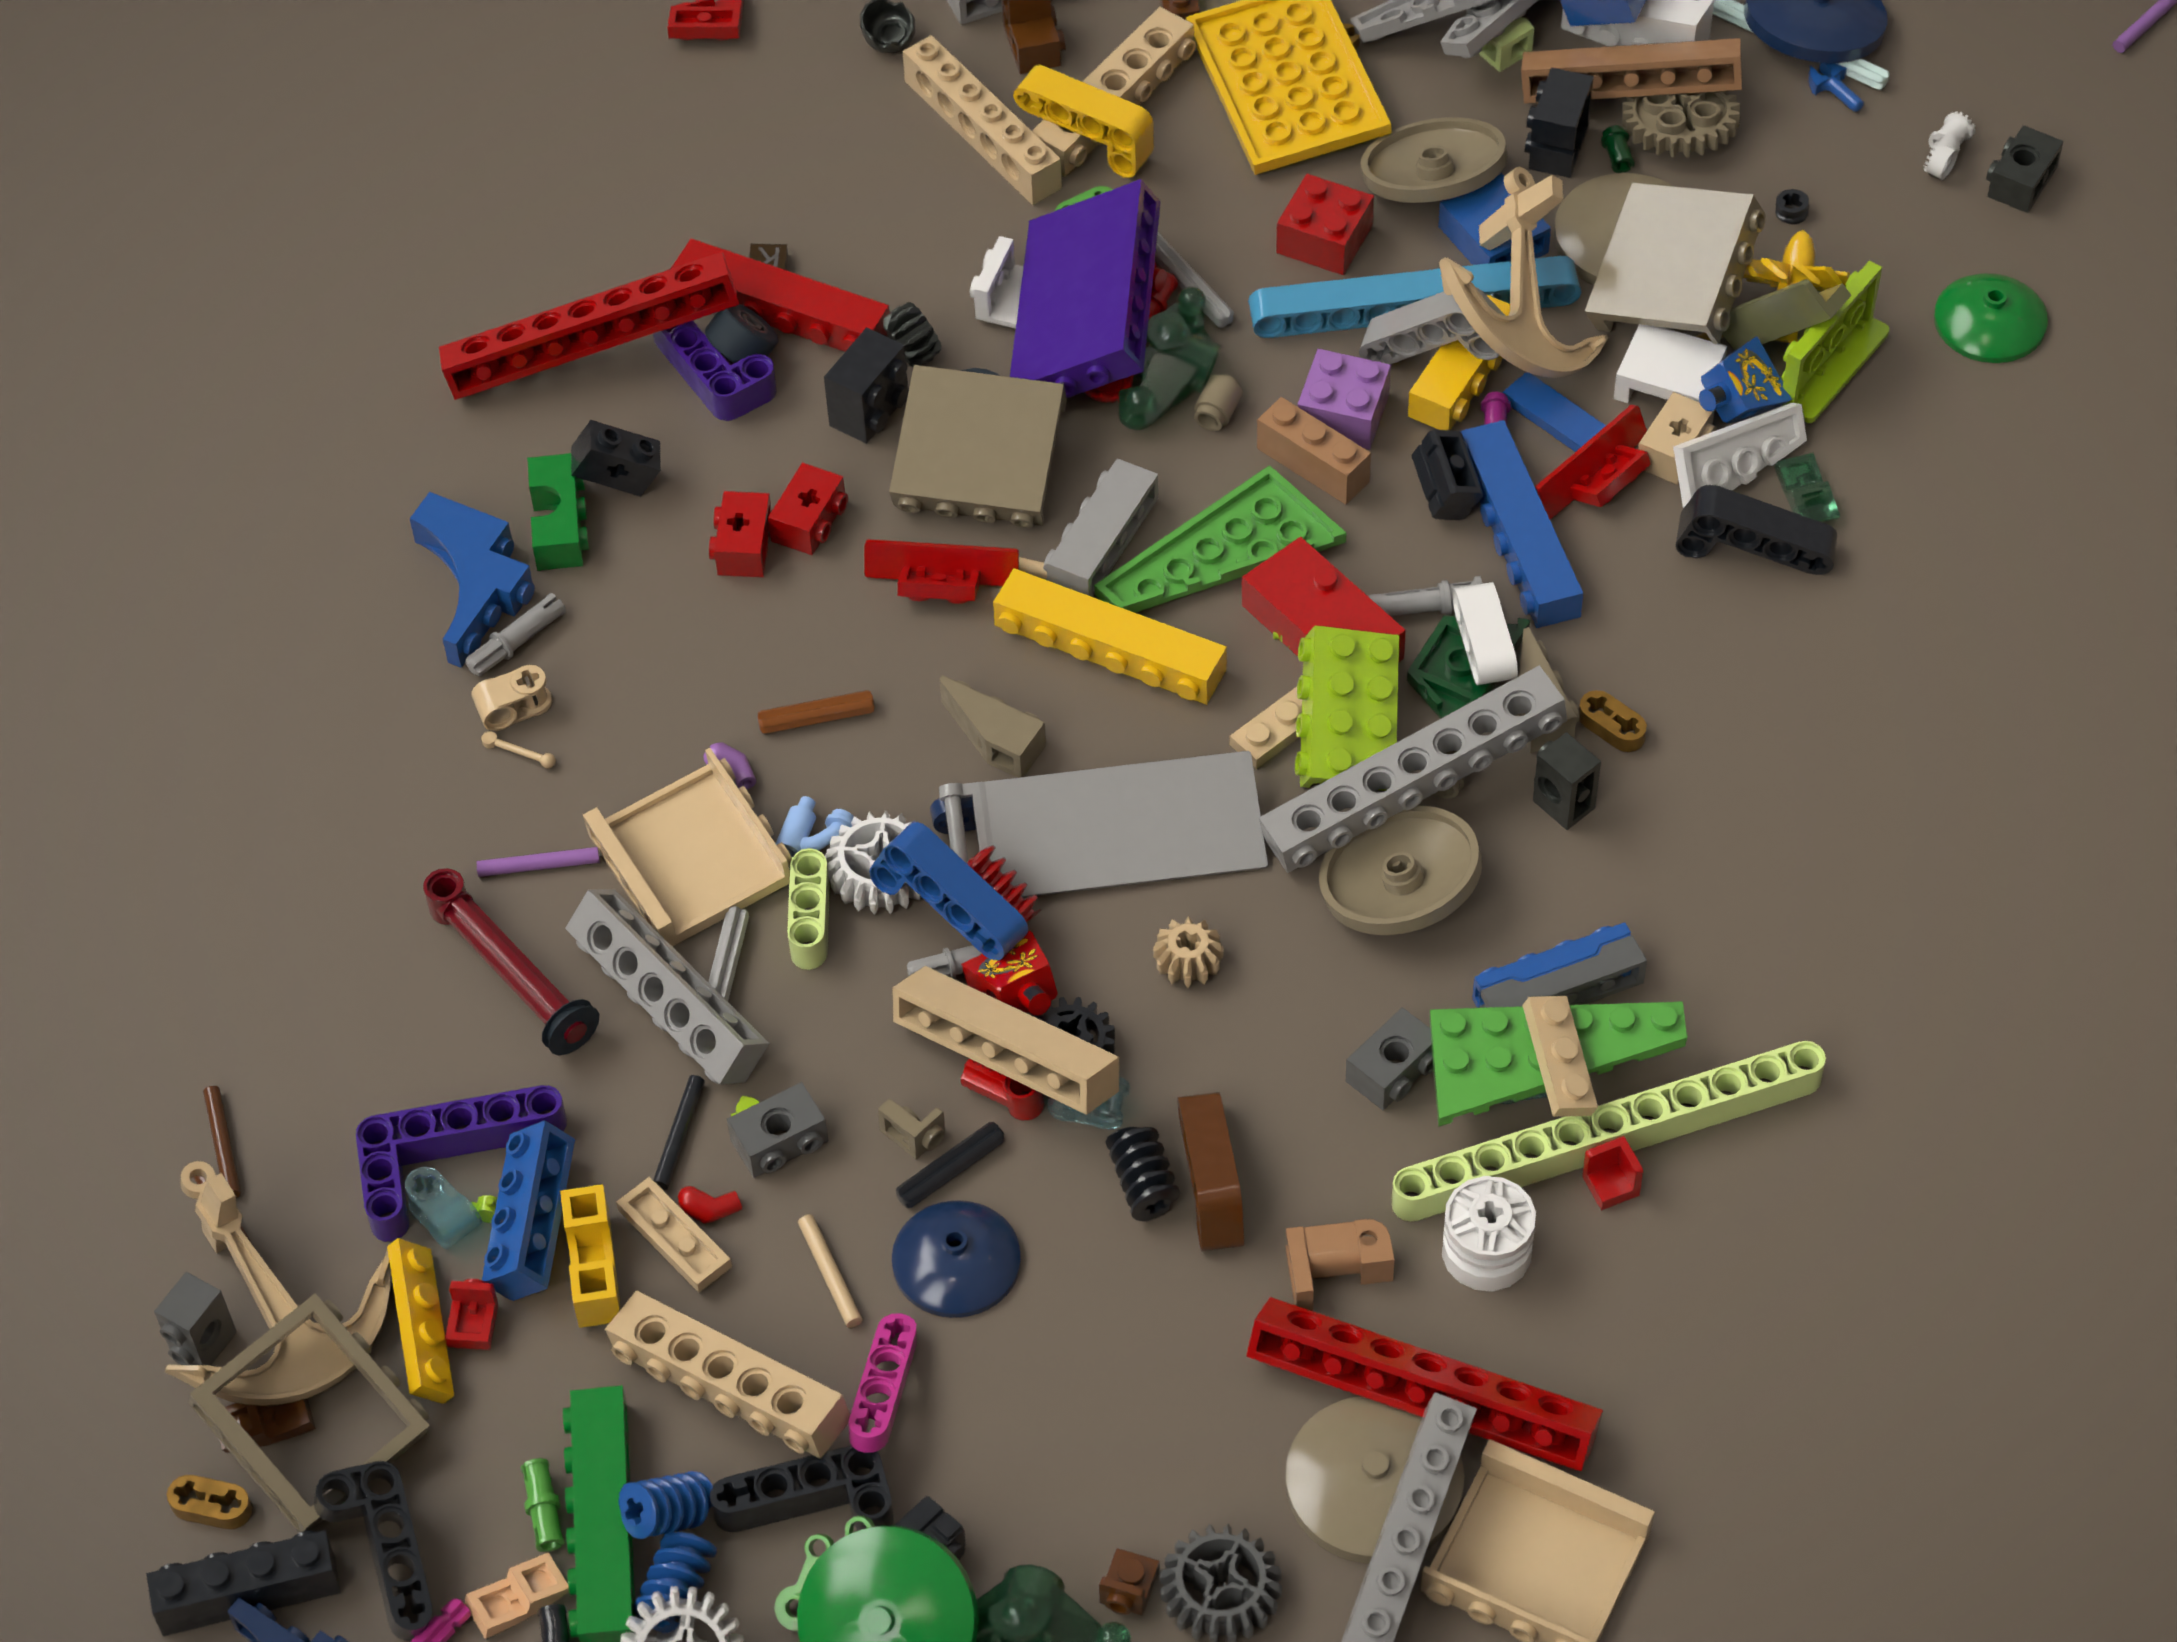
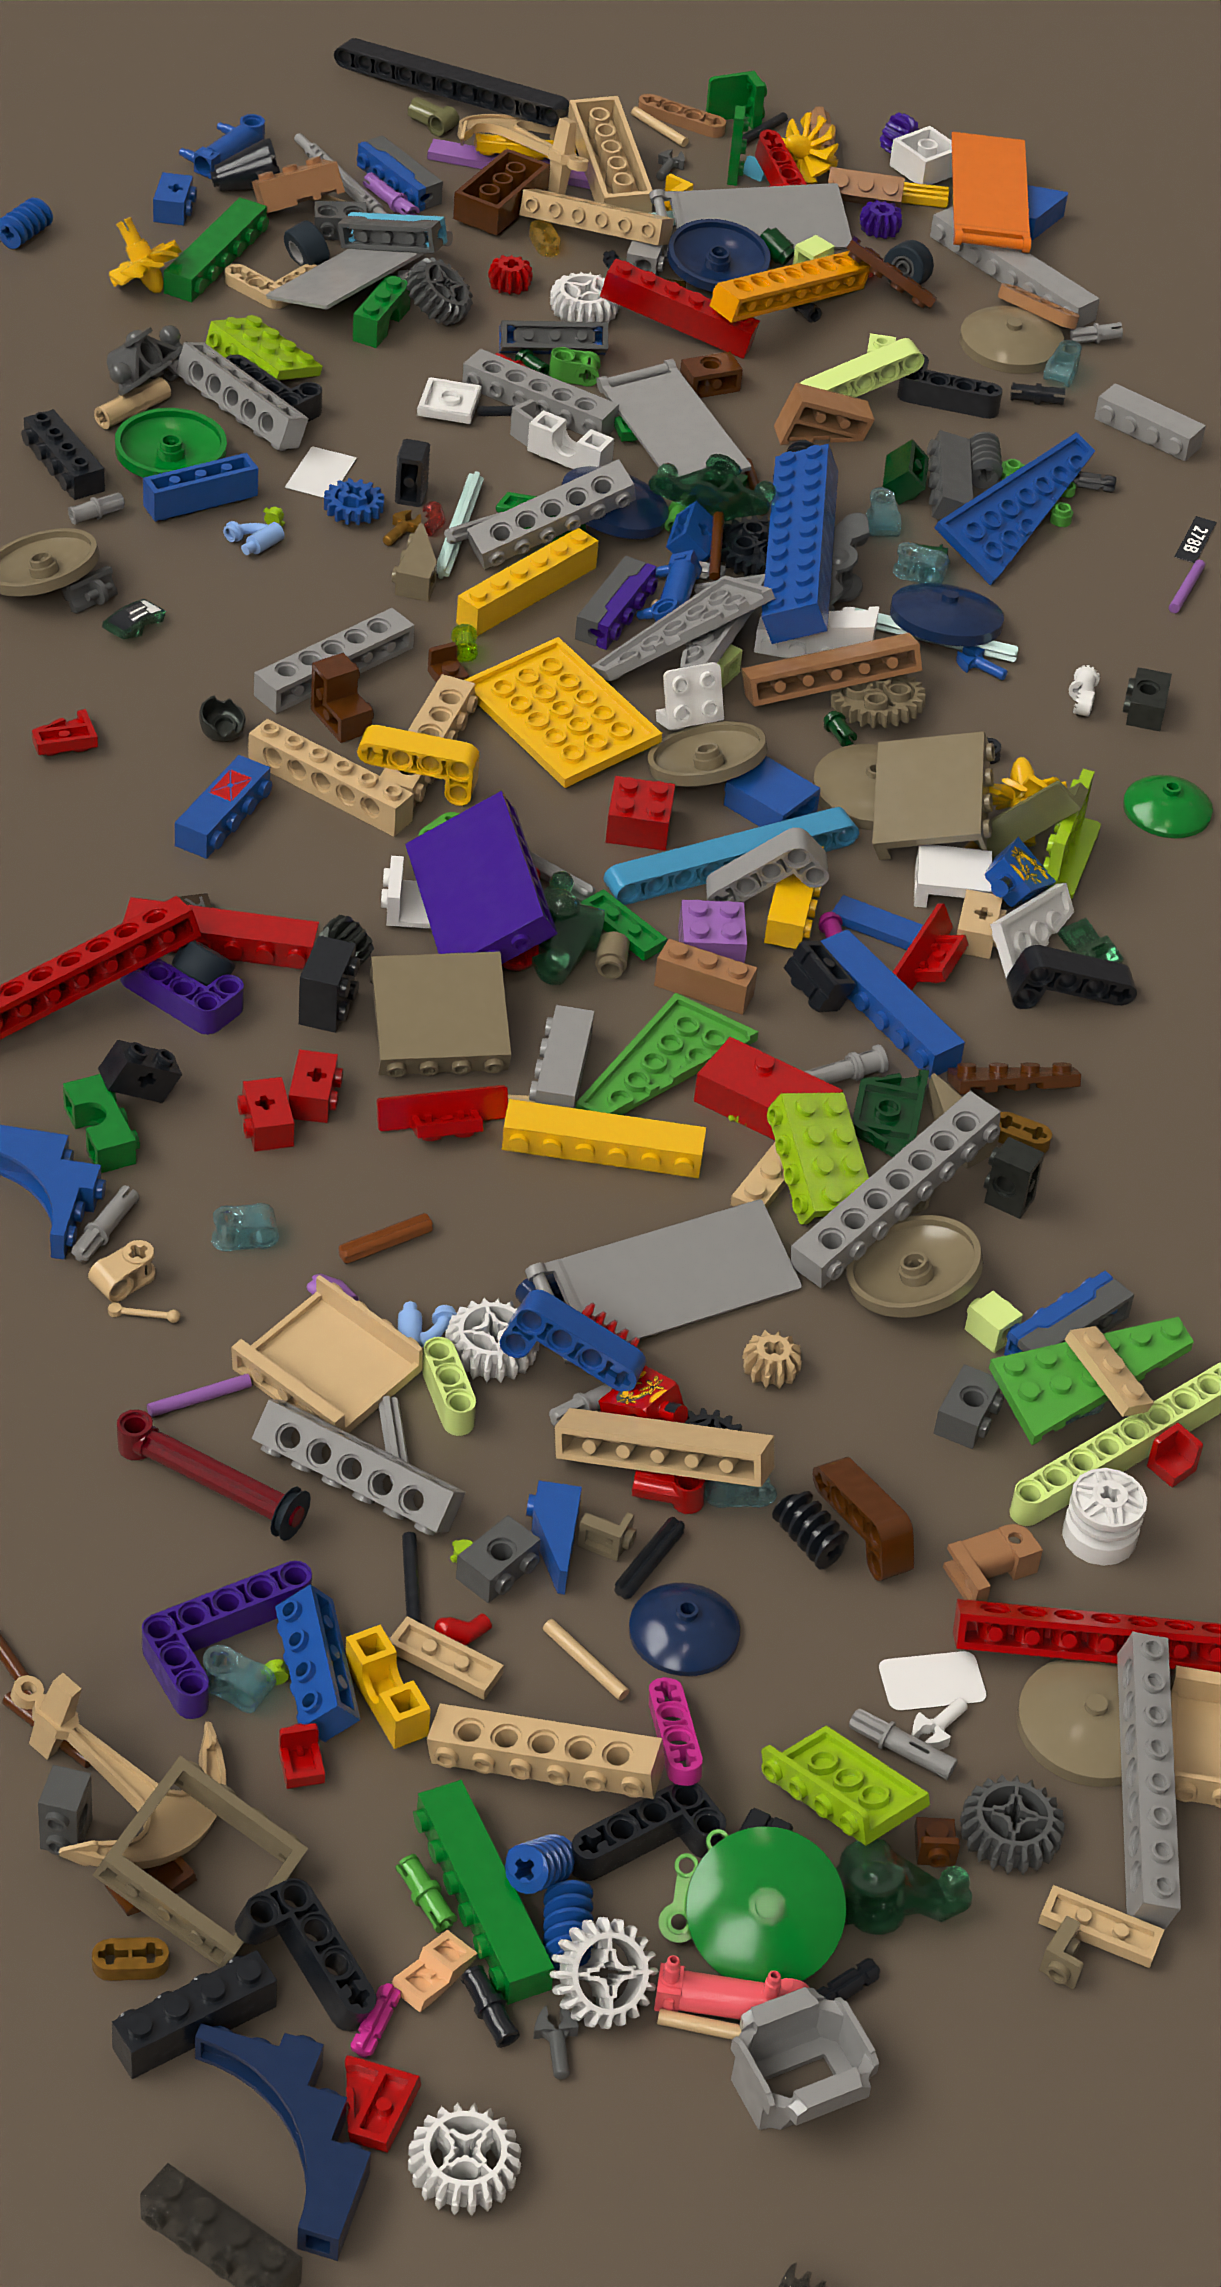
camera: 25 degrees left, 10 degrees down
(420, 1321) = (263, 1776): yellow plate -> none
(666, 670) = (247, 1226): none -> clear light blue piece
(846, 137) = (222, 806): none -> blue brick
(858, 1091) = (554, 1523): none -> blue slope
(998, 731) = (541, 1223): dark tan slope -> none
(1040, 1493) = (844, 1784): none -> lime bracket
(1128, 1444) = (903, 1743): none -> light grey axle
(1191, 1443) = (937, 1725): none -> white bar
(1212, 1386) = (932, 1680): none -> white sticker
(1248, 365) = (643, 938): none -> green plate
(1441, 82) = (692, 696): none -> white bracket
(1467, 953) = (991, 1320): none -> yellowish green brick
(1484, 633) = (903, 1083): white beam -> none
(1522, 334) = (837, 855): tan piece -> none
(1559, 122) = (792, 713): black piece -> none
(1628, 649) = (1015, 1078): none -> reddish brown wing

